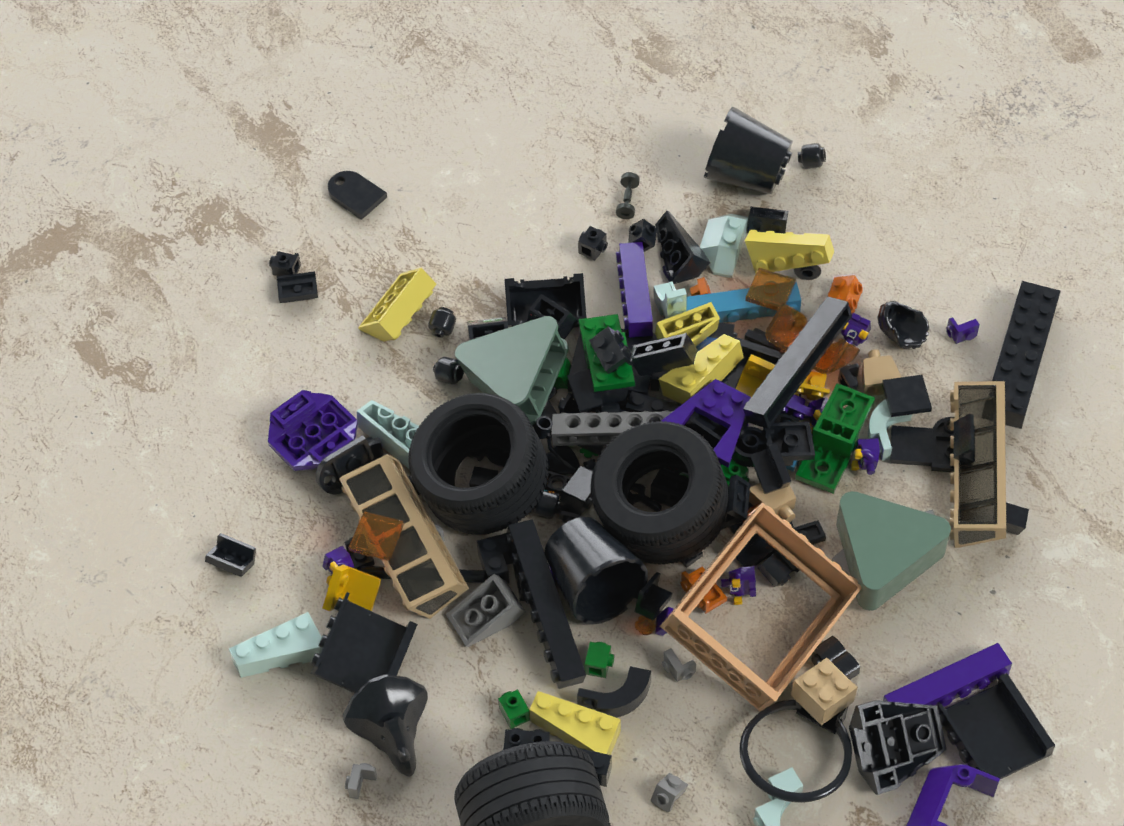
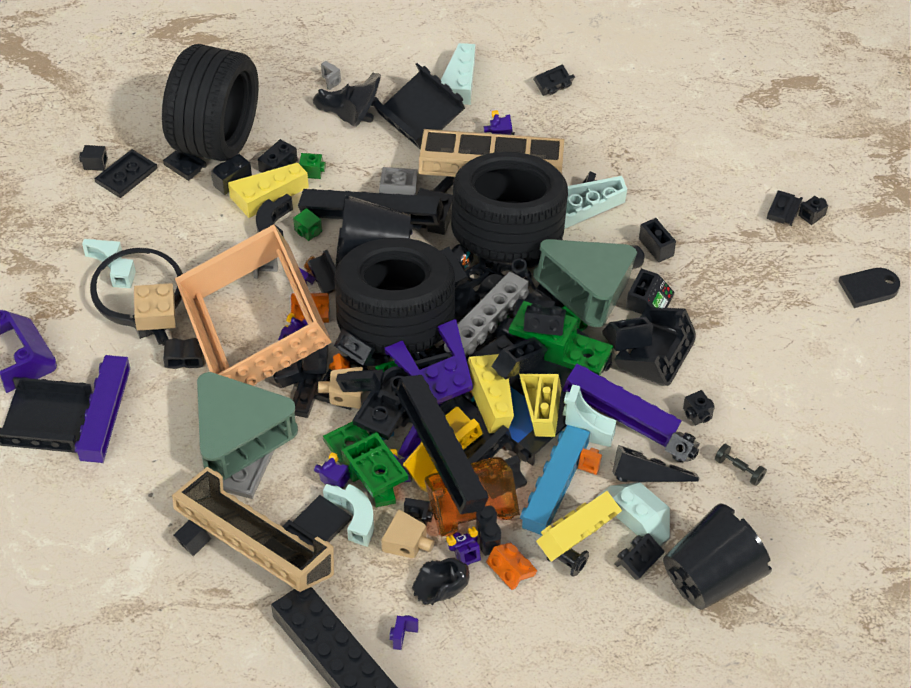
camera: 120 degrees right, 5 degrees down
(307, 416) = (626, 151): dark purple piece -> none
(343, 462) = (578, 158): black tile -> none
(360, 585) = (479, 115): yellow bracket -> none
(376, 536) = (495, 132): clear orange tile -> none
(398, 305) = (720, 257): light yellow slope -> none
(414, 356) = (657, 240): none -> black brick
(442, 322) = (683, 274): black head -> none
(668, 791) = (180, 215): light grey bracket -> none
(770, 289) = (548, 497): clear orange tile -> none
(812, 155) = (694, 637): black head -> none
(894, 741) = (88, 343): black wedge -> none
(906, 395) = (361, 528): black tile -> none
(964, 439) = (280, 535): black panel -> none

